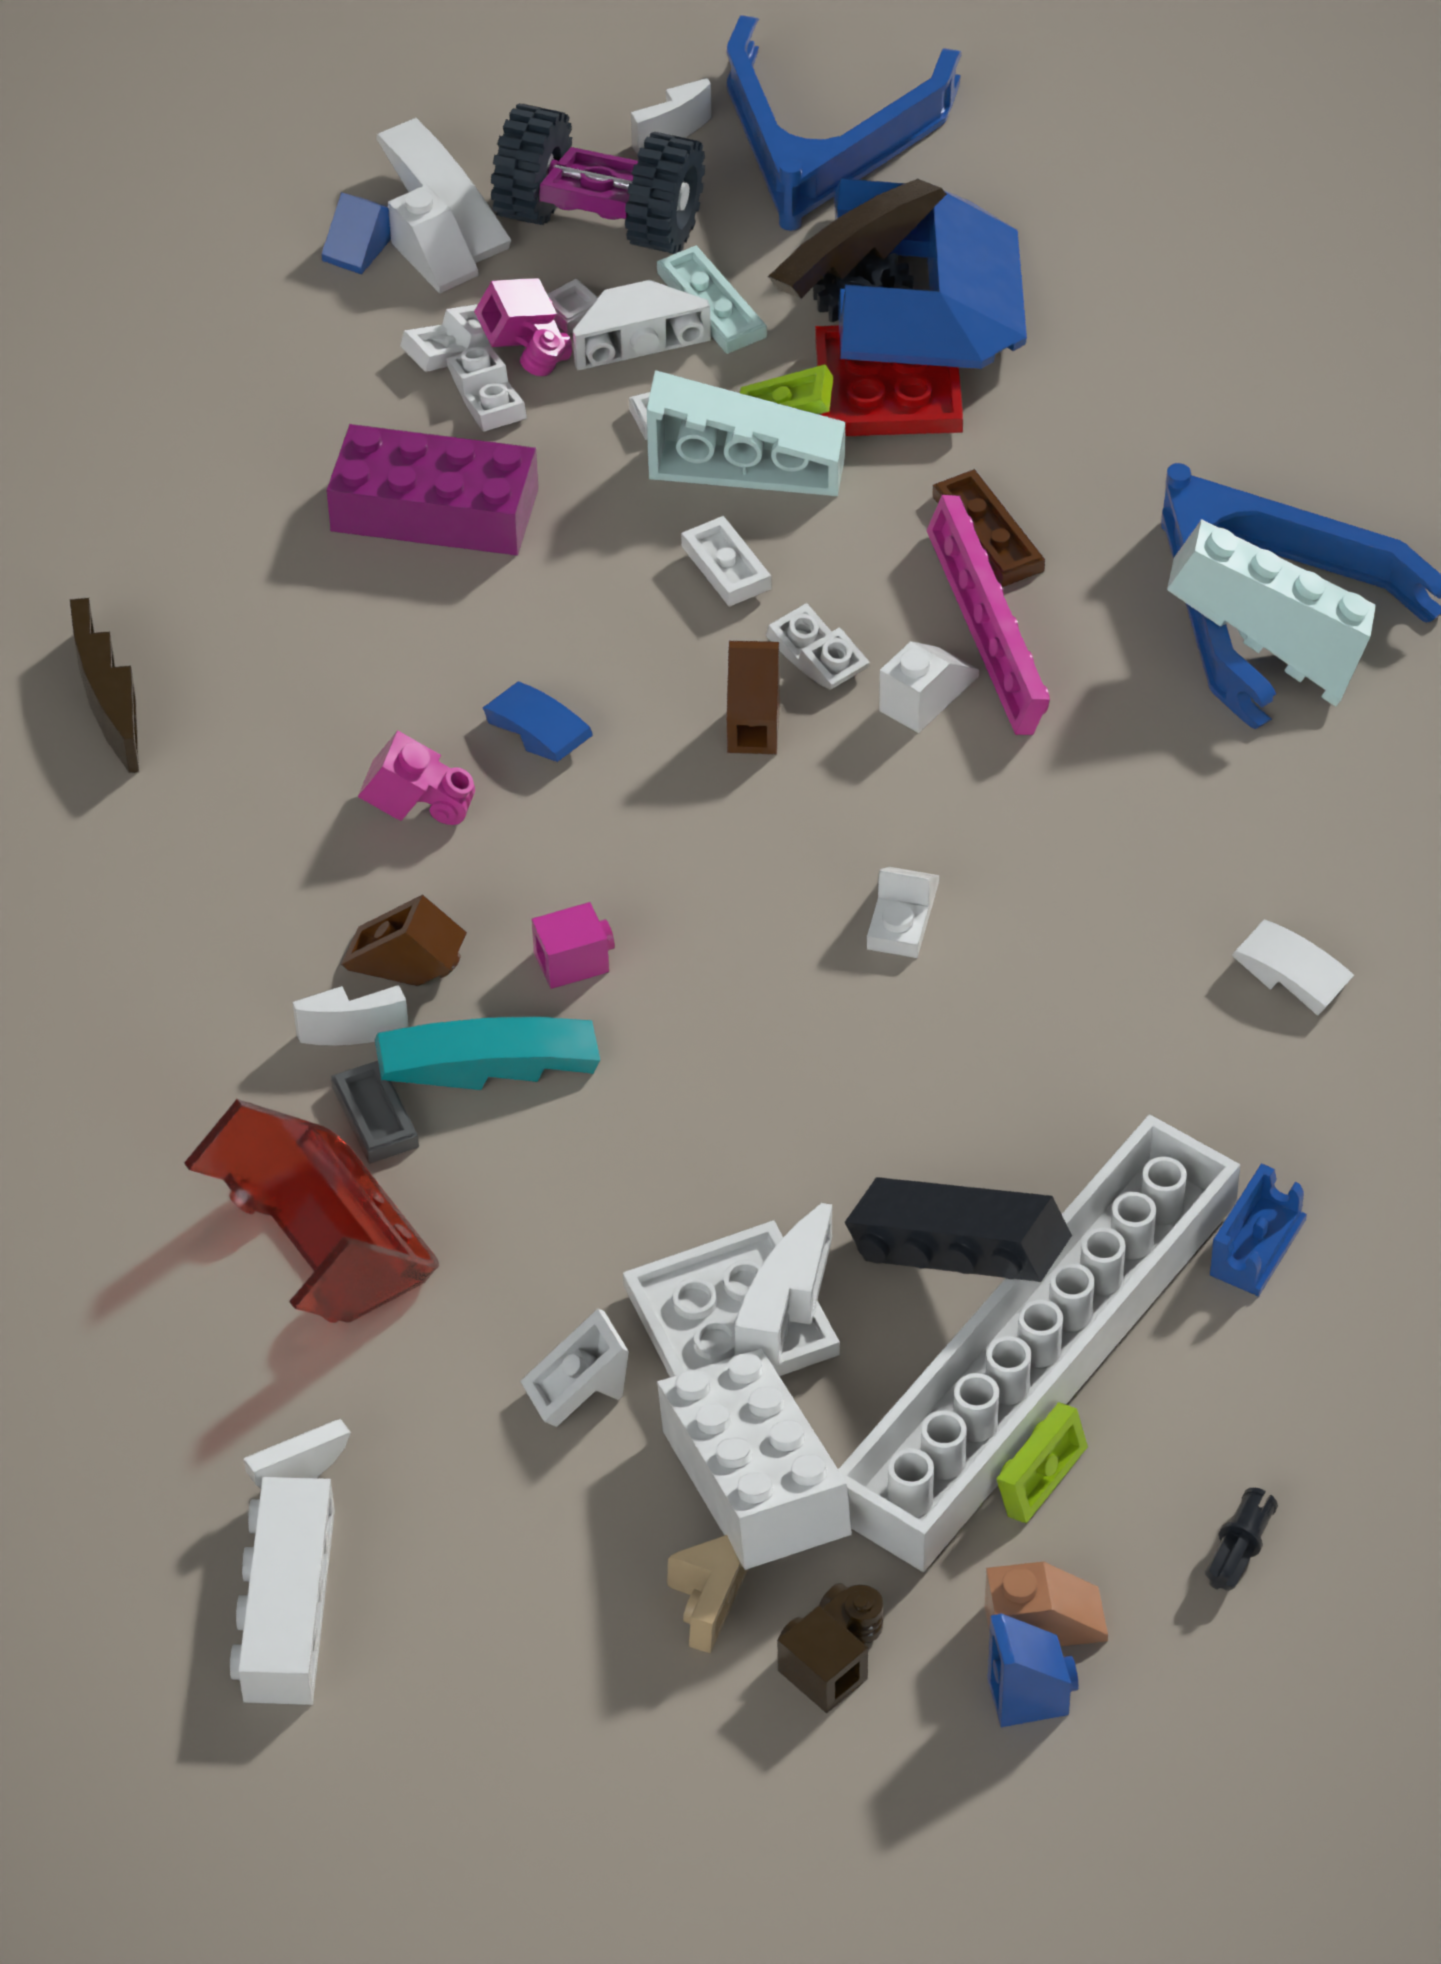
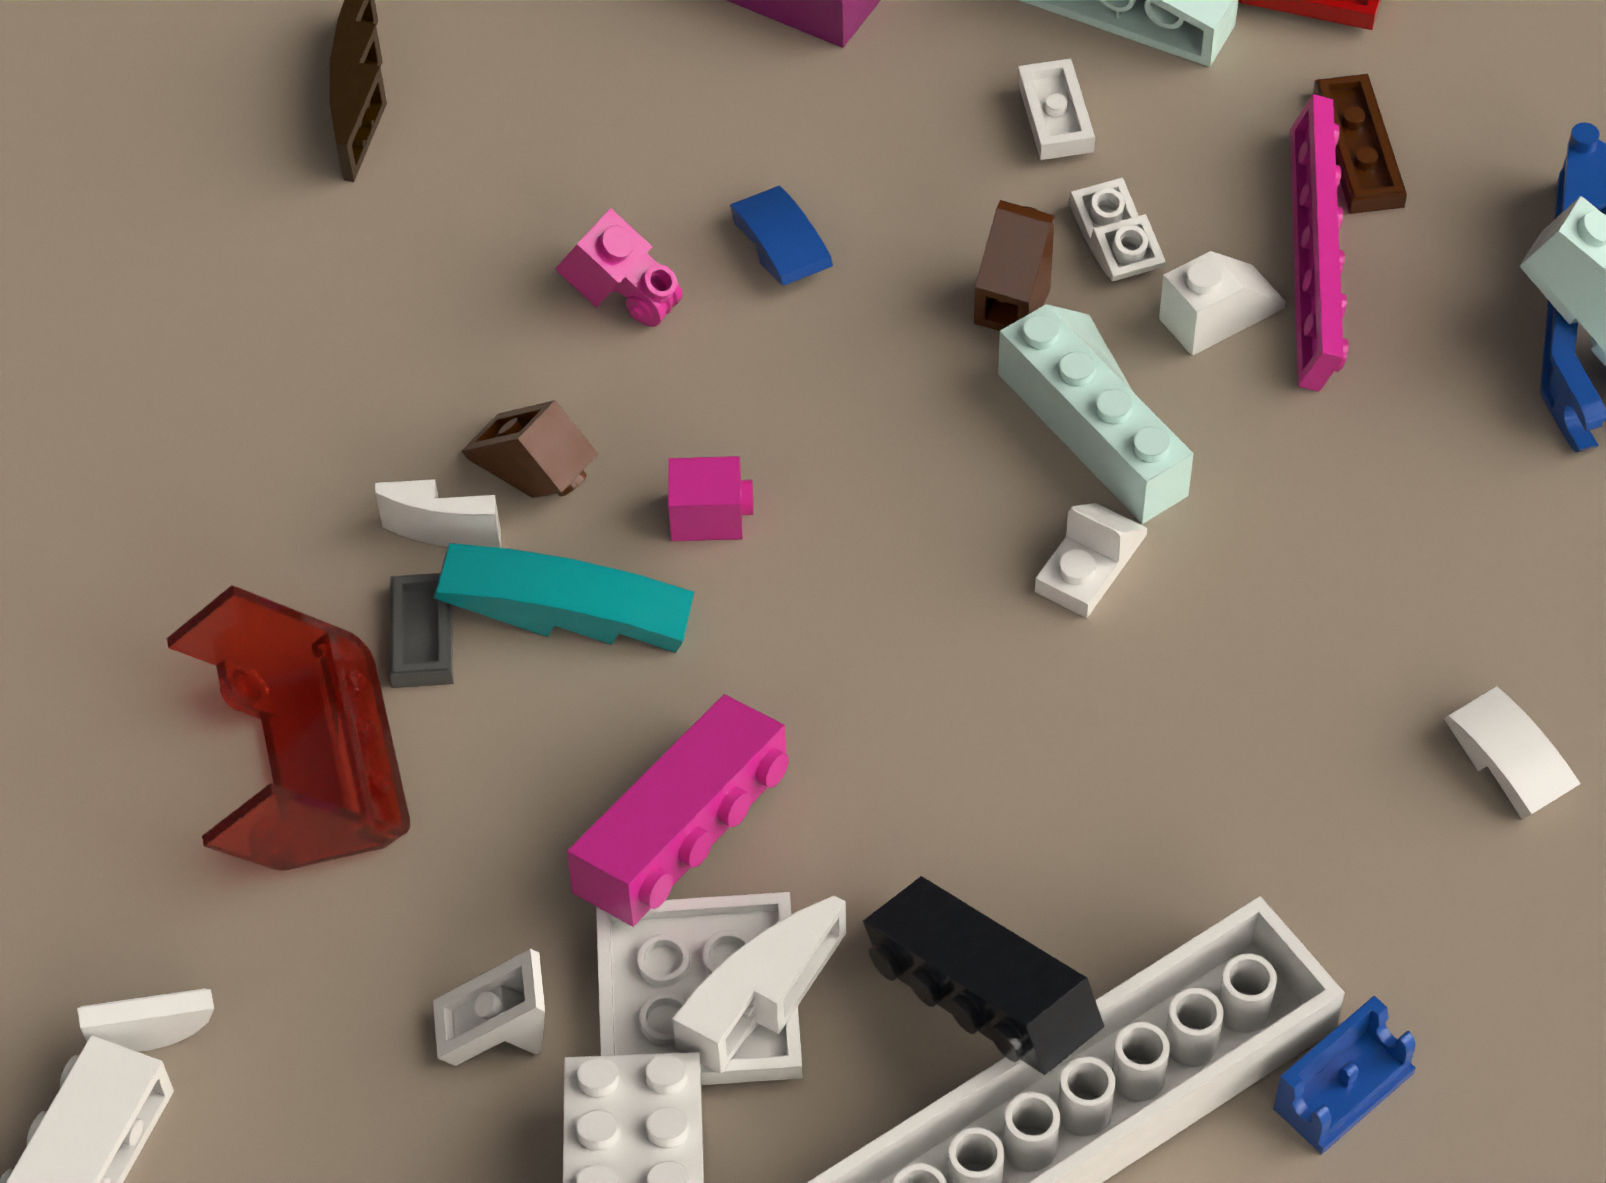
camera: 20 degrees right, 5 degrees up
(661, 1182) = (678, 810): none -> dark pink brick
(861, 794) = (1080, 393): none -> light aqua wedge

